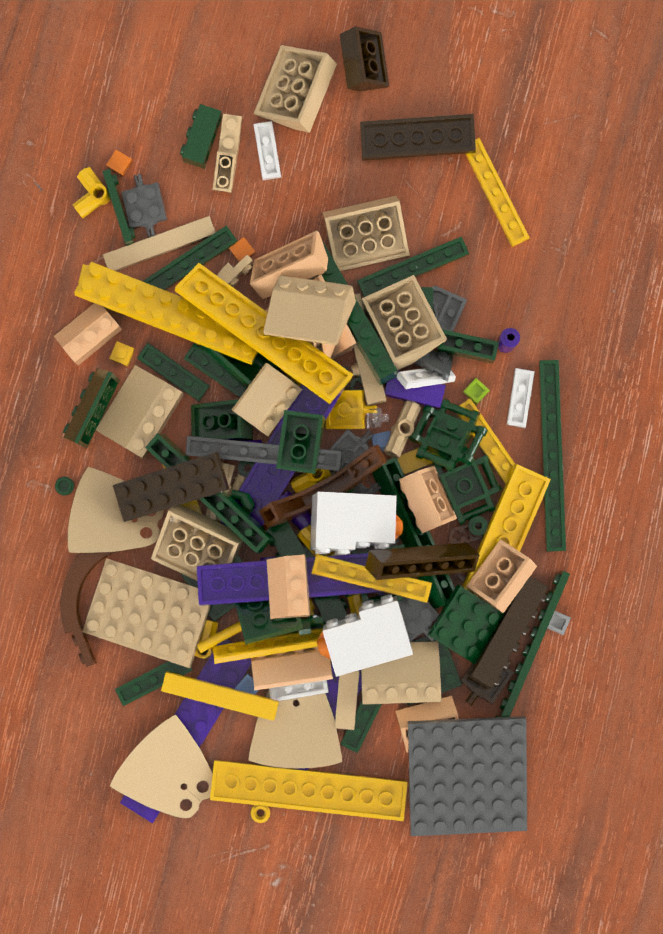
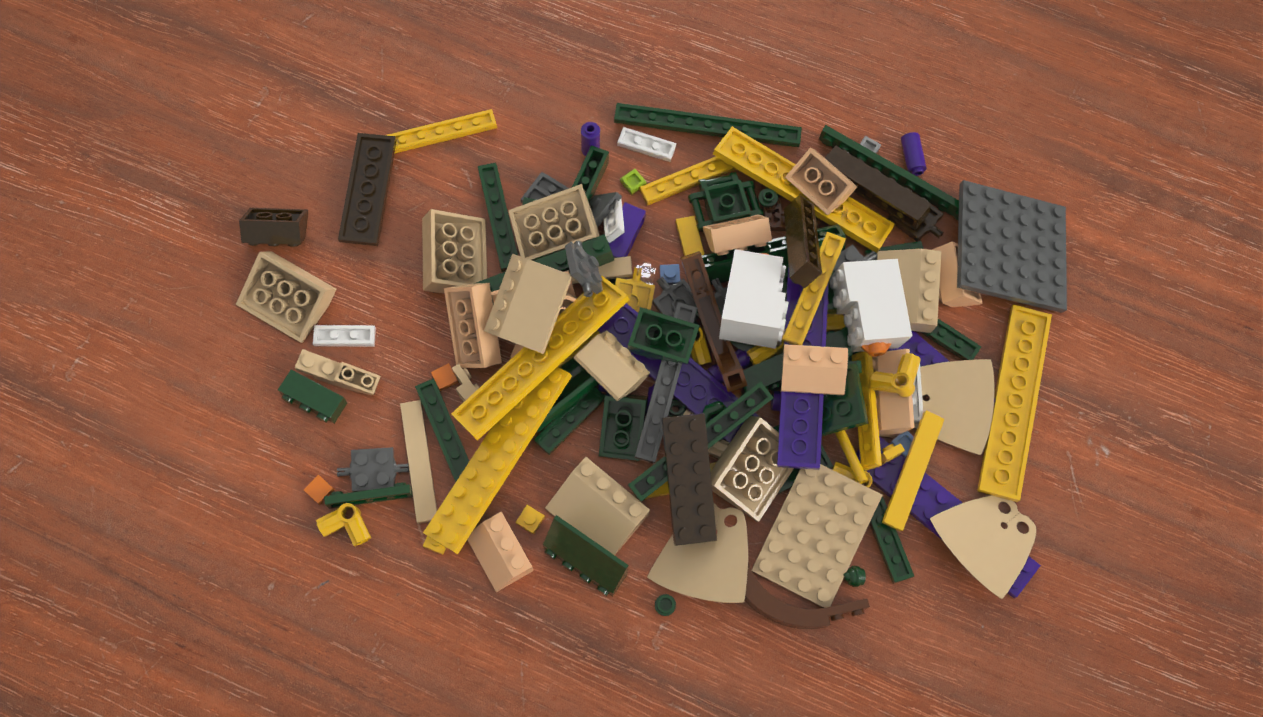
camera: 85 degrees left, 15 degrees down
(115, 652) = (855, 576): none -> dark green plate
(173, 372) = (560, 469): dark green tile -> none
(232, 672) = (891, 452): none -> yellow plate
(260, 819) = (1039, 449): yellow plate -> none
(303, 676) = (905, 374): none -> yellow piece
(347, 701) = (931, 347): tan tile -> none
(351, 355) = (584, 268): none -> dark grey plate
(405, 419) = (659, 249): tan piece -> none
(448, 435) = (675, 208): dark green brick -> none
(465, 624) = (864, 221): dark green plate -> none
(557, 669) = (913, 153): none -> dark purple brick

